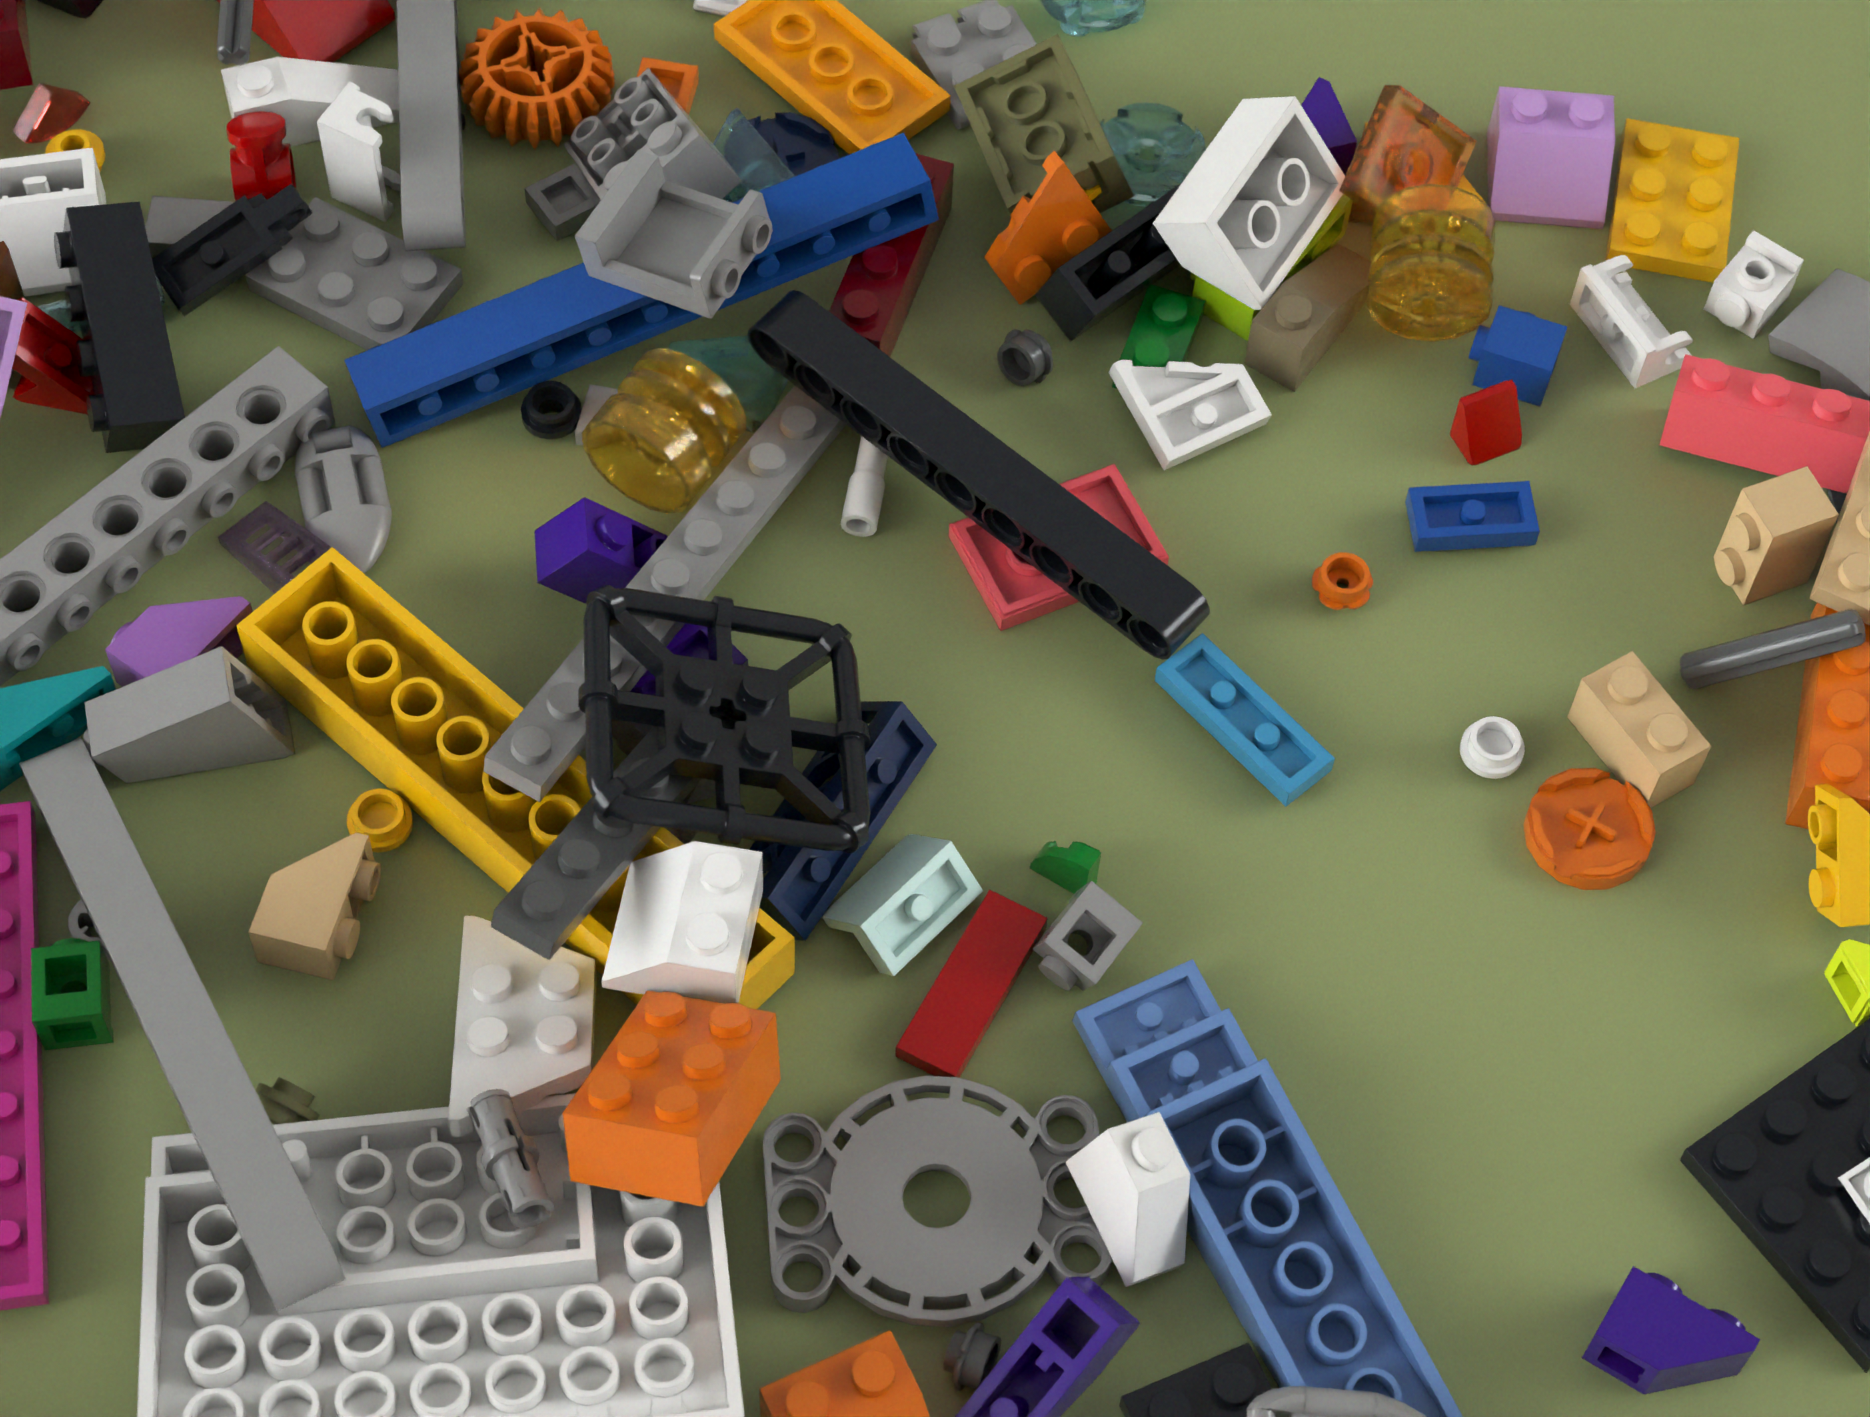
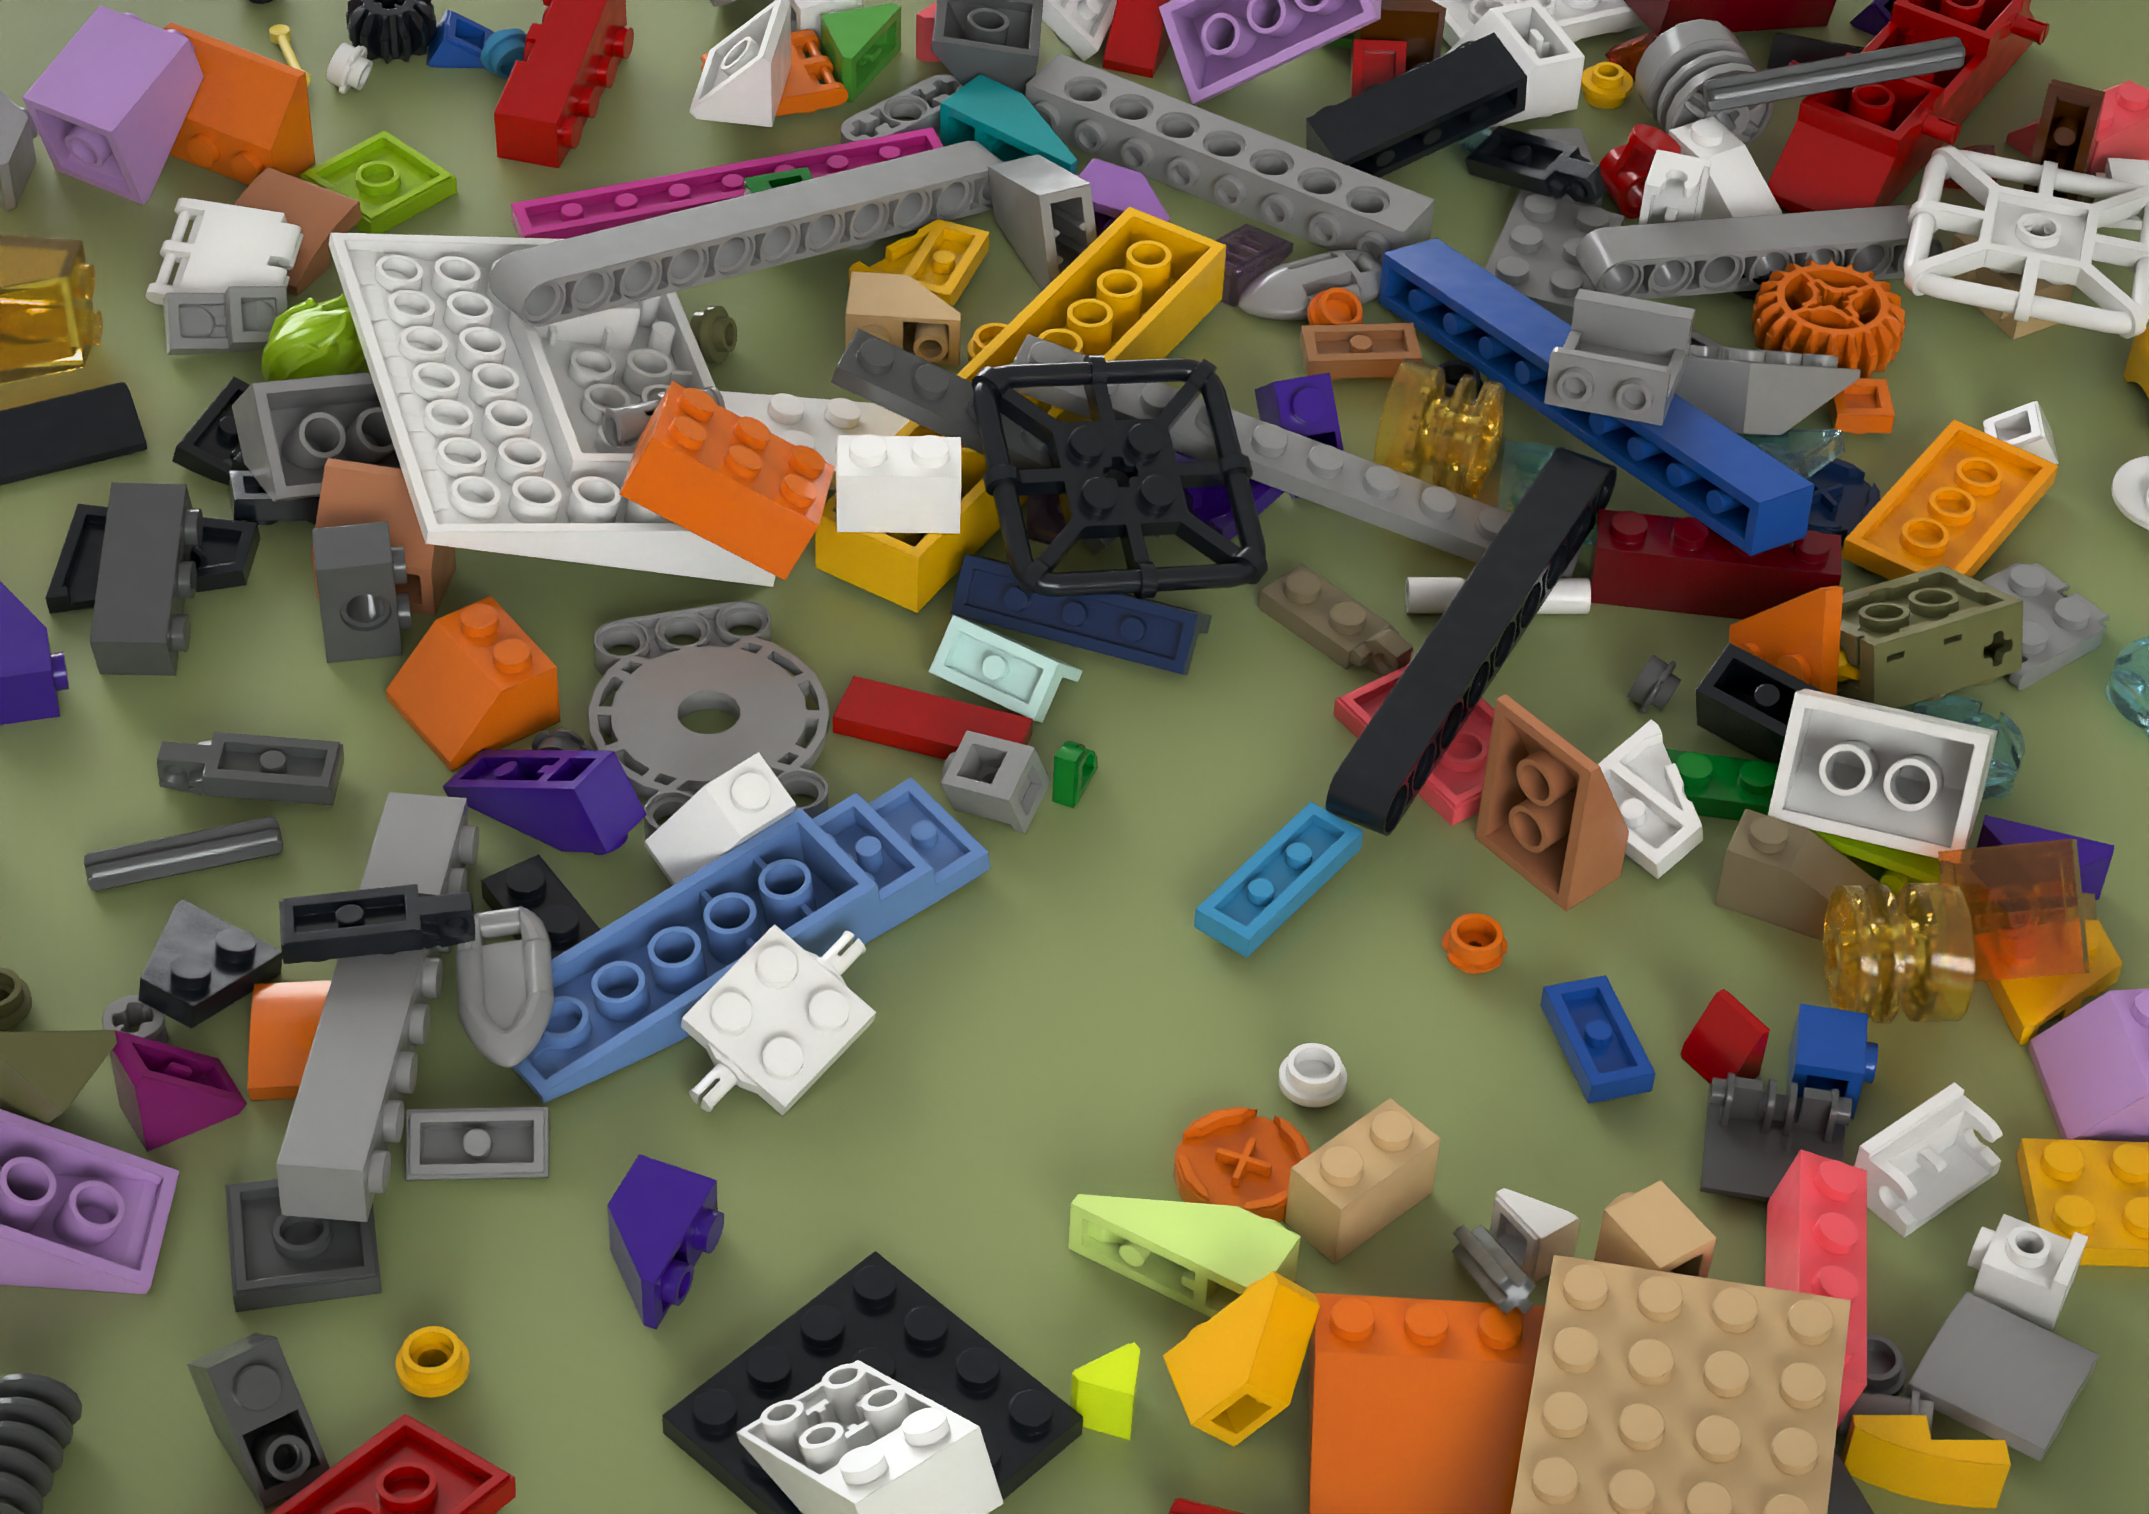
camera: 80 degrees right, 15 degrees down
(162, 67) = (1680, 63): none -> light grey wheel
(214, 862) = (937, 256): none -> yellow wing
(411, 486) = (1335, 307): none -> orange plate
(475, 479) = (1358, 349): none -> medium nougat plate
(890, 591) = (1334, 622): none -> dark tan hinge
(1231, 474) = (1548, 809): none -> nougat slope
(1406, 1186) = (777, 1020): none -> white plate
(1598, 420) = (1759, 1133): none -> dark grey hinge
(1705, 620) = (1533, 1231): none -> white slope
(1718, 865) = (1183, 1248): none -> yellowish green slope

